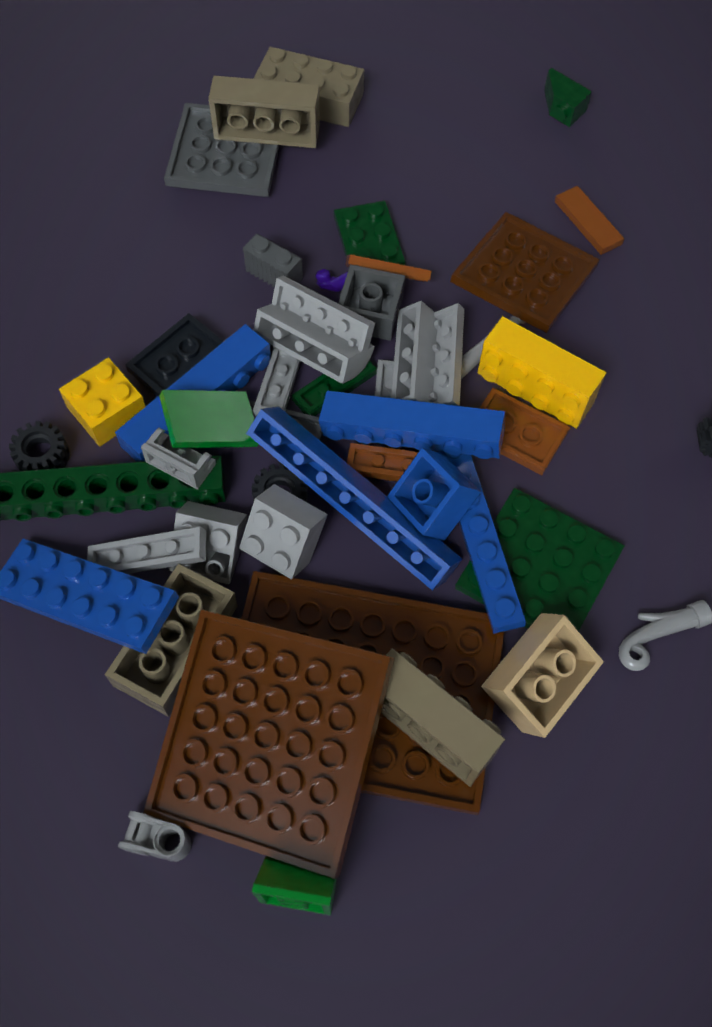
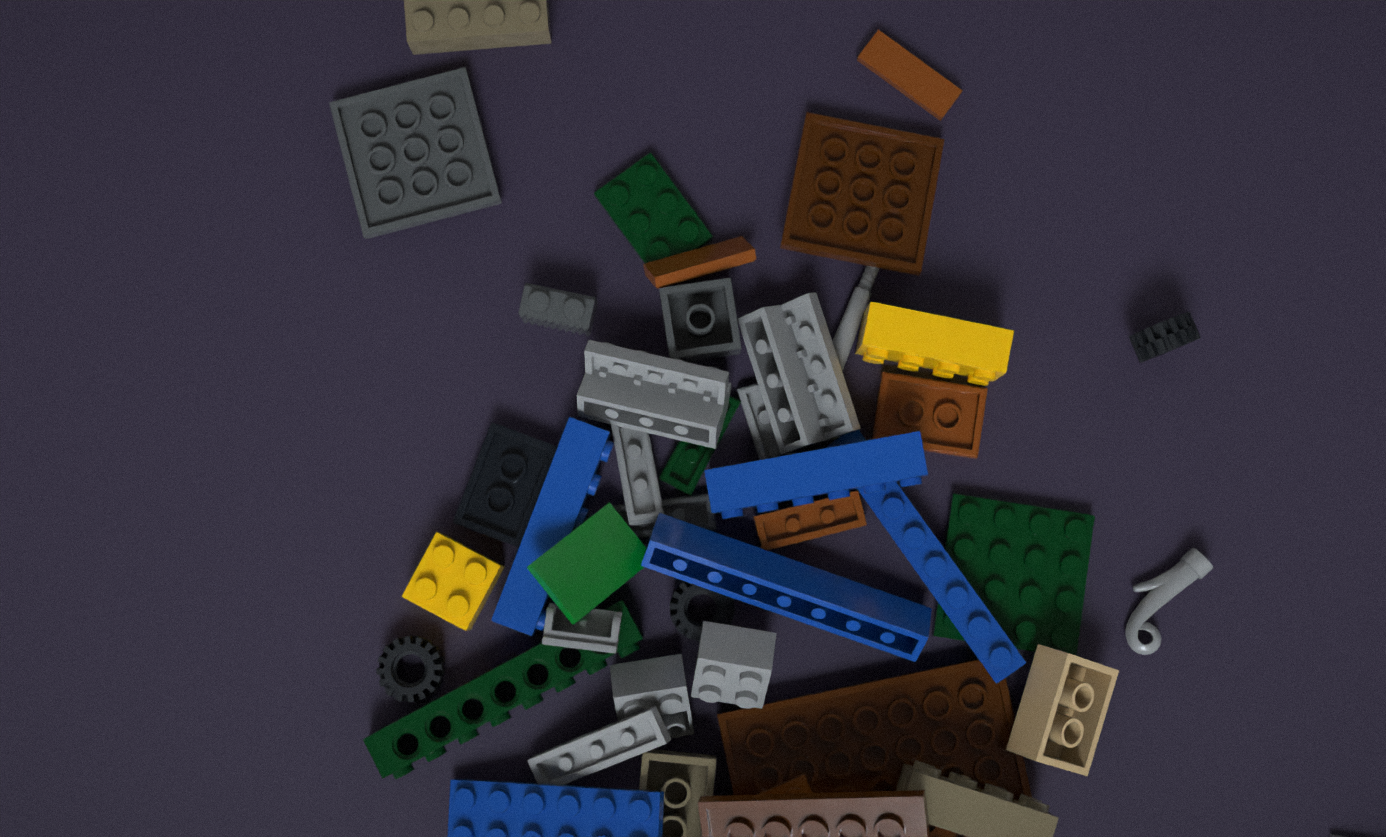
camera: 25 degrees left, 20 degrees up
(265, 111) = (452, 97): dark tan brick -> none
(329, 282) = (637, 301): dark purple arm -> none
(433, 494) = (876, 554): blue brick -> none

